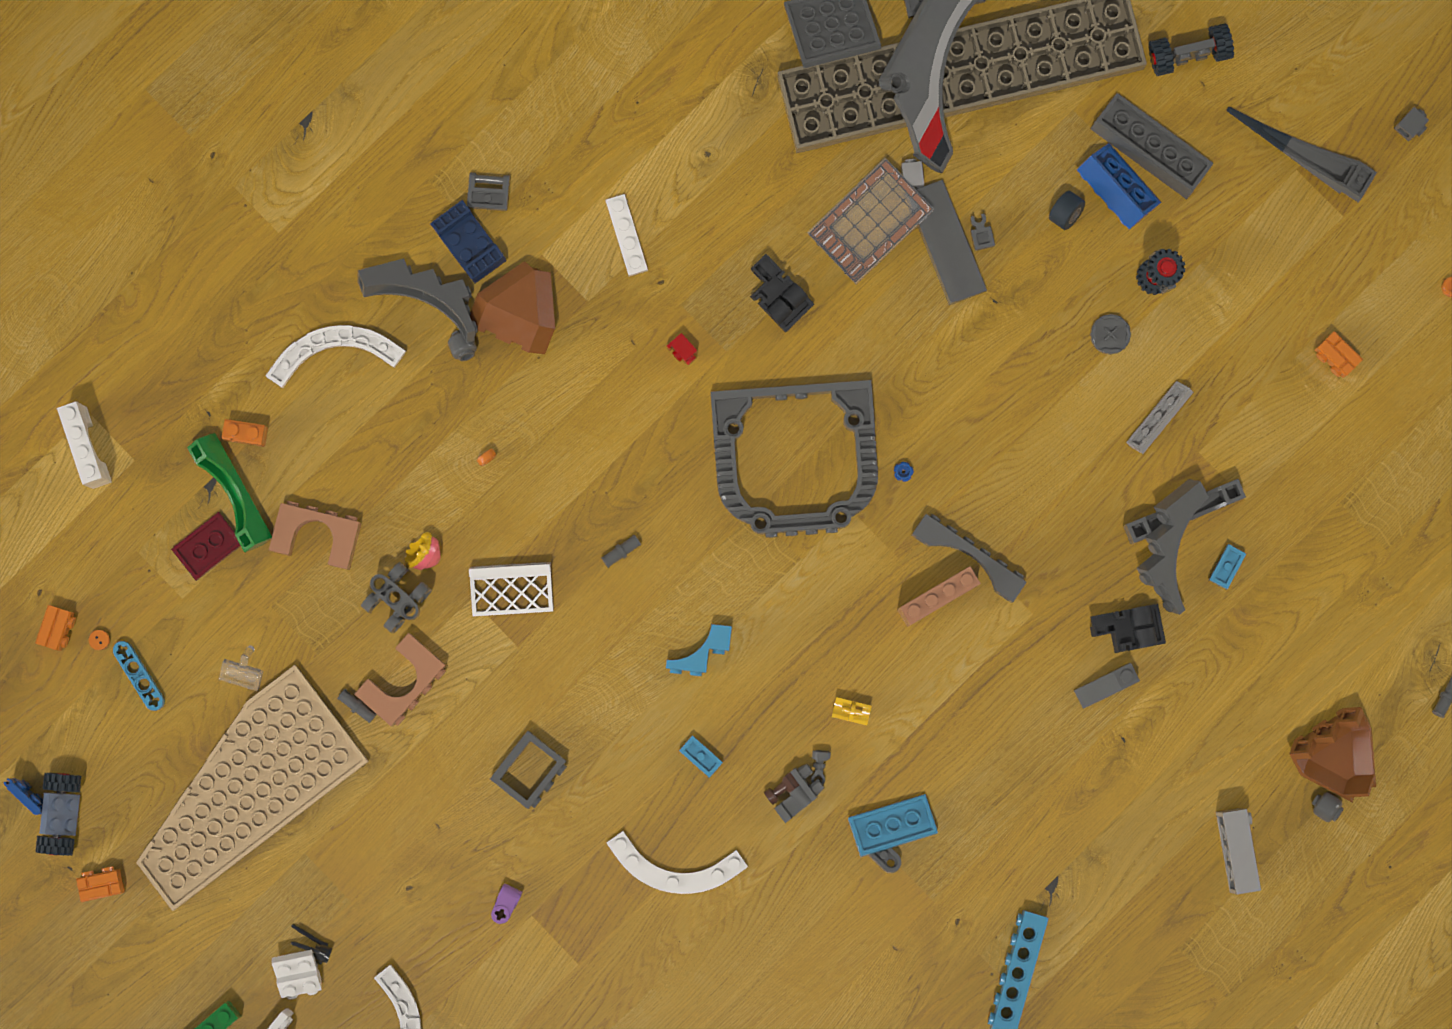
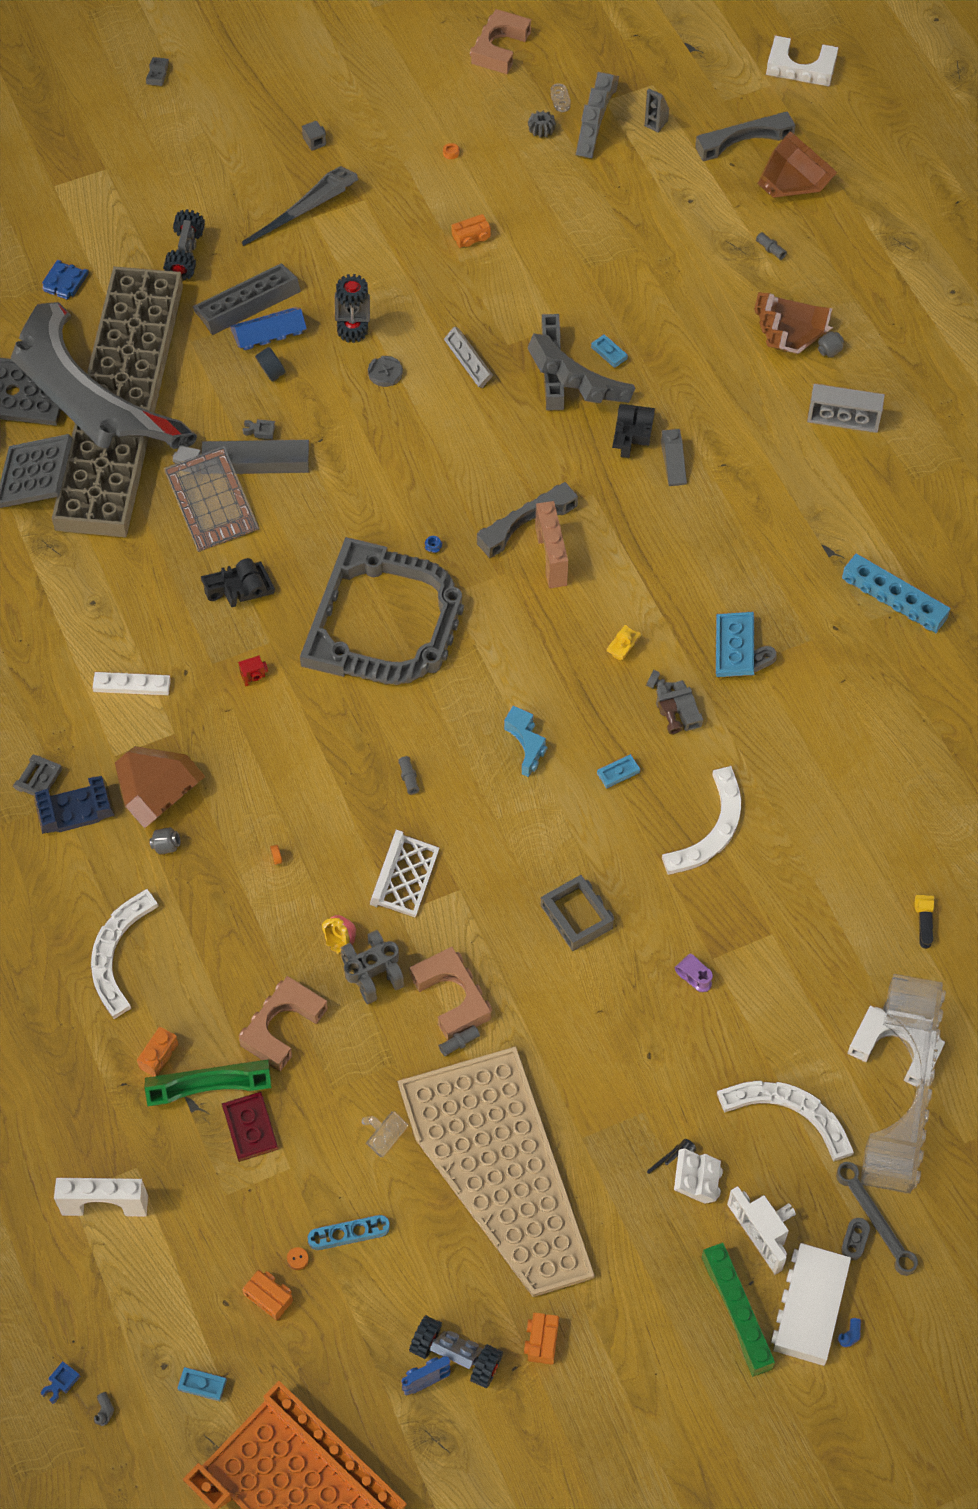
camera: 70 degrees left, 25 degrees down
(397, 279) = (117, 834): dark grey arch -> none

